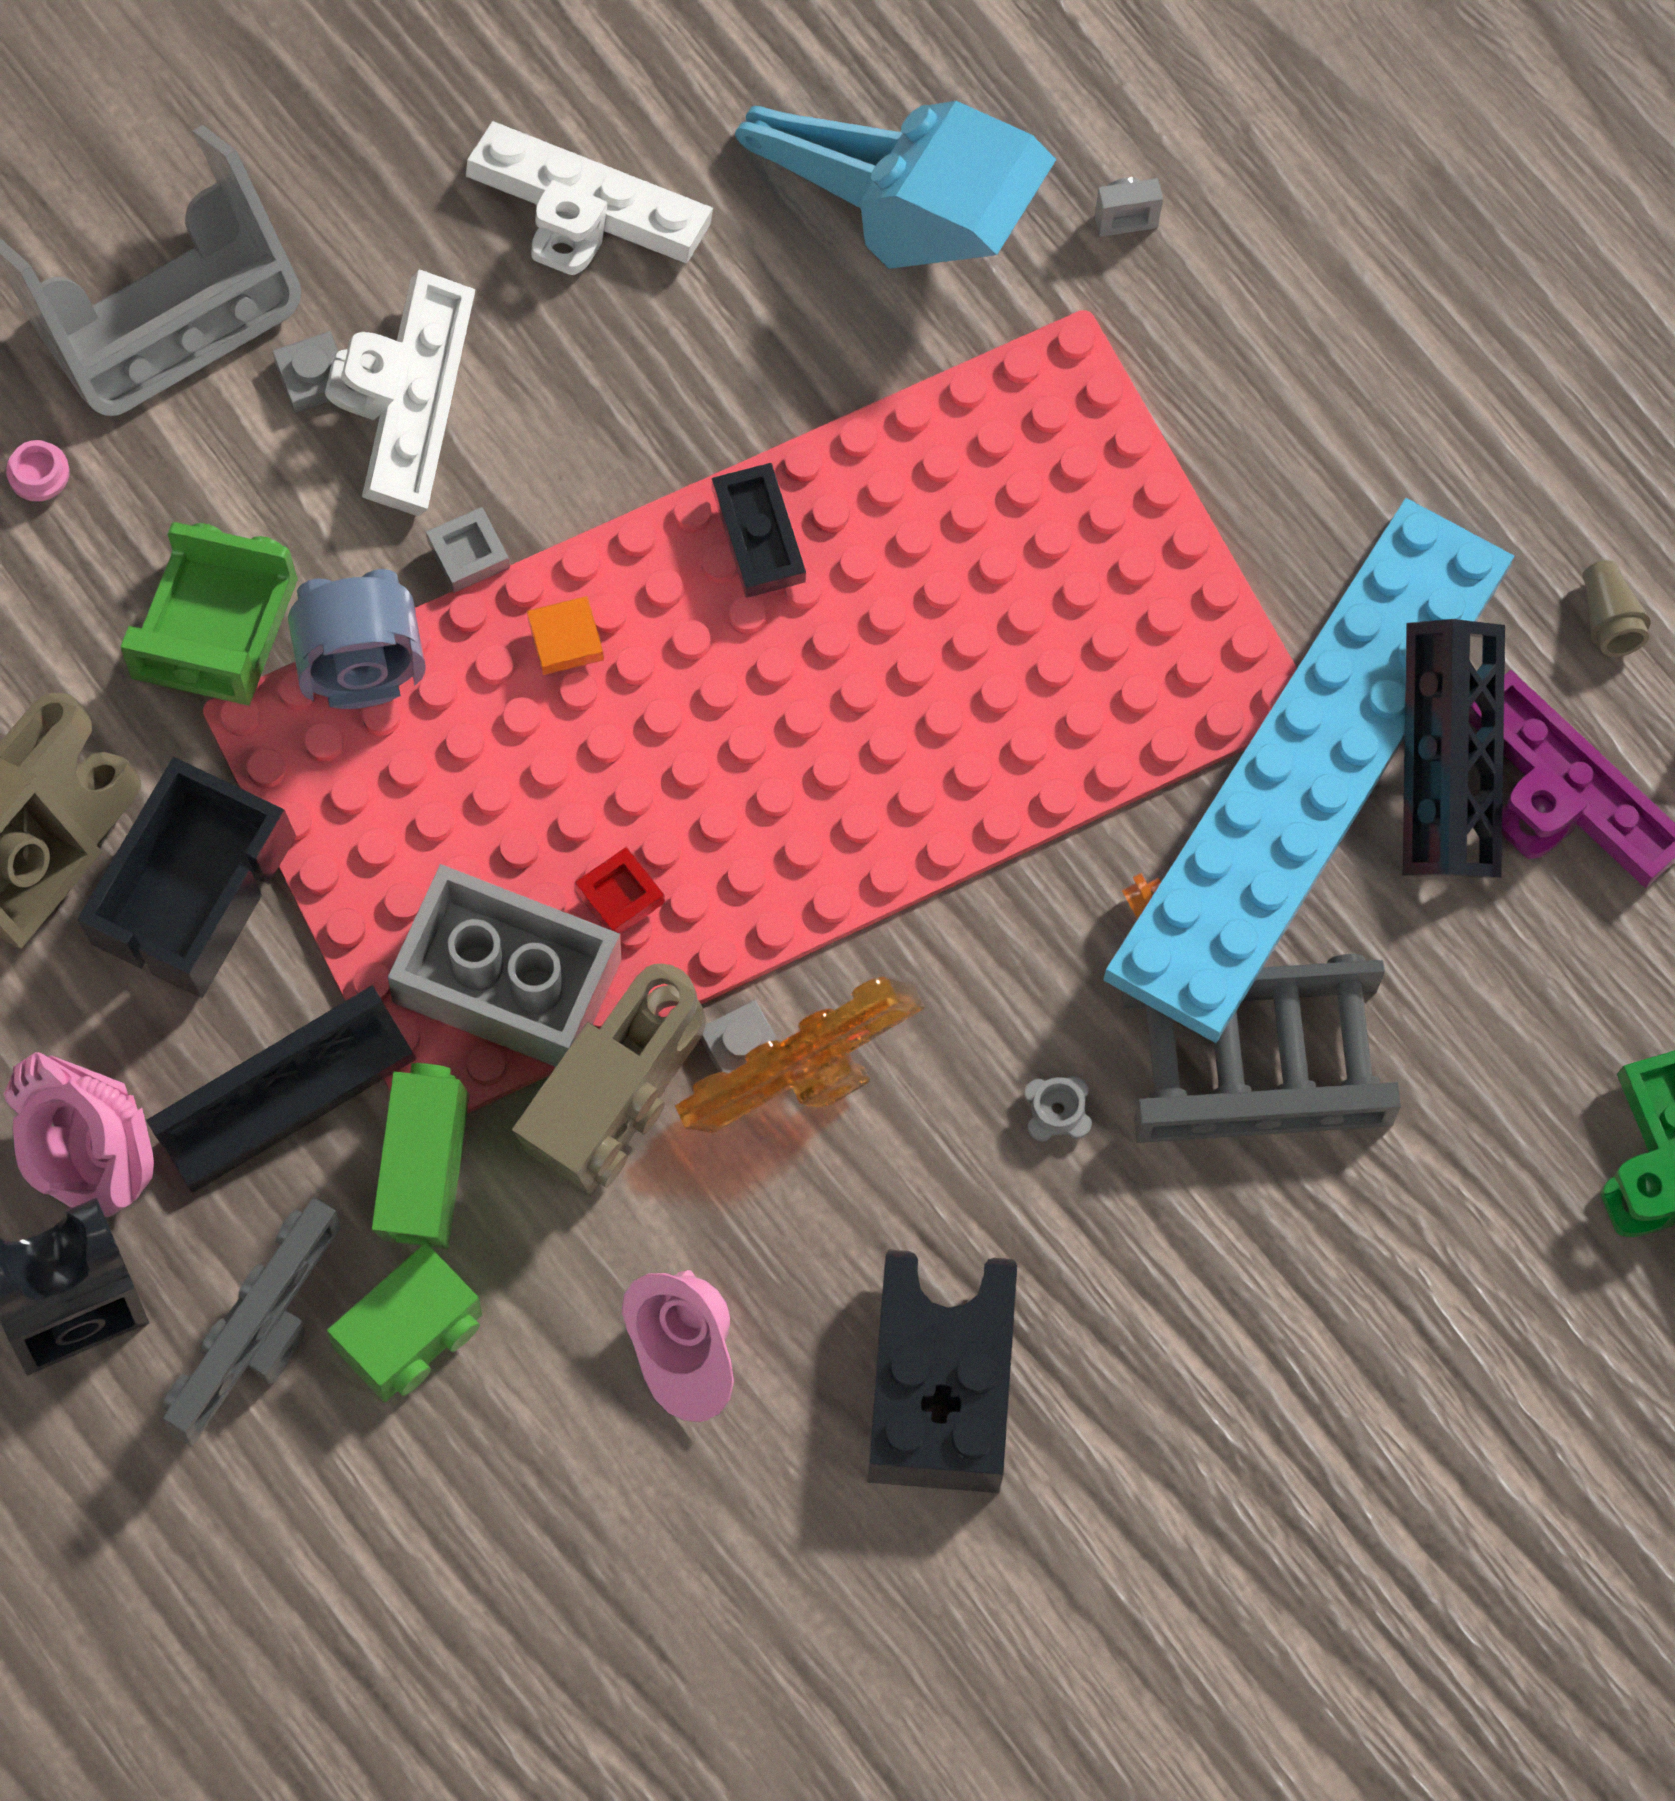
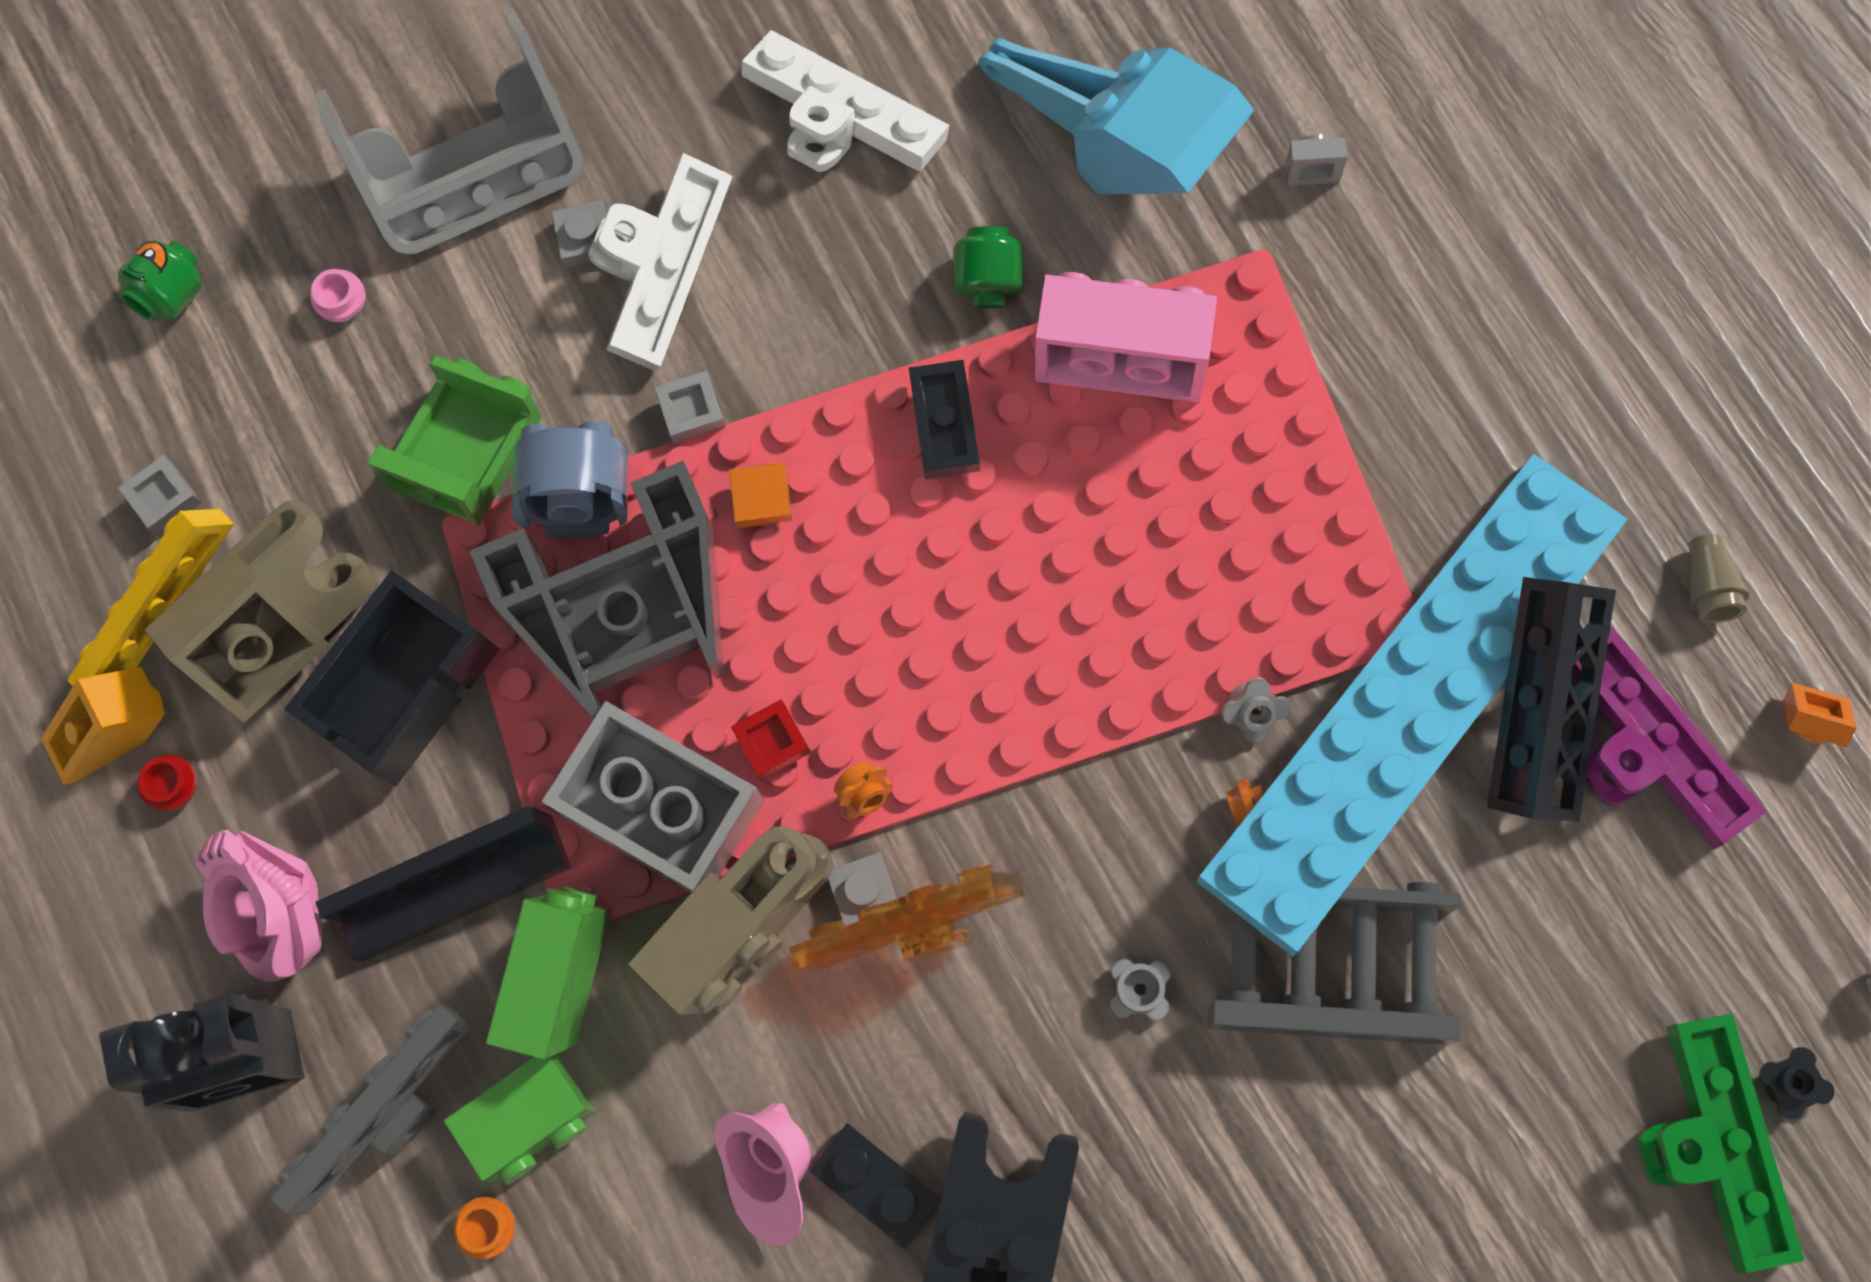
camera: 20 degrees right, 5 degrees up
(382, 1446) = (484, 1228): none -> orange plate
(430, 771) = (619, 608): none -> dark grey wedge
(729, 932) = (862, 789): none -> orange plate
(781, 359) = (988, 266): none -> green head
(802, 1346) = (875, 1185): none -> black plate
(947, 419) = (1124, 337): none -> bright pink brick
(1127, 792) = (1245, 699): none -> light grey plate

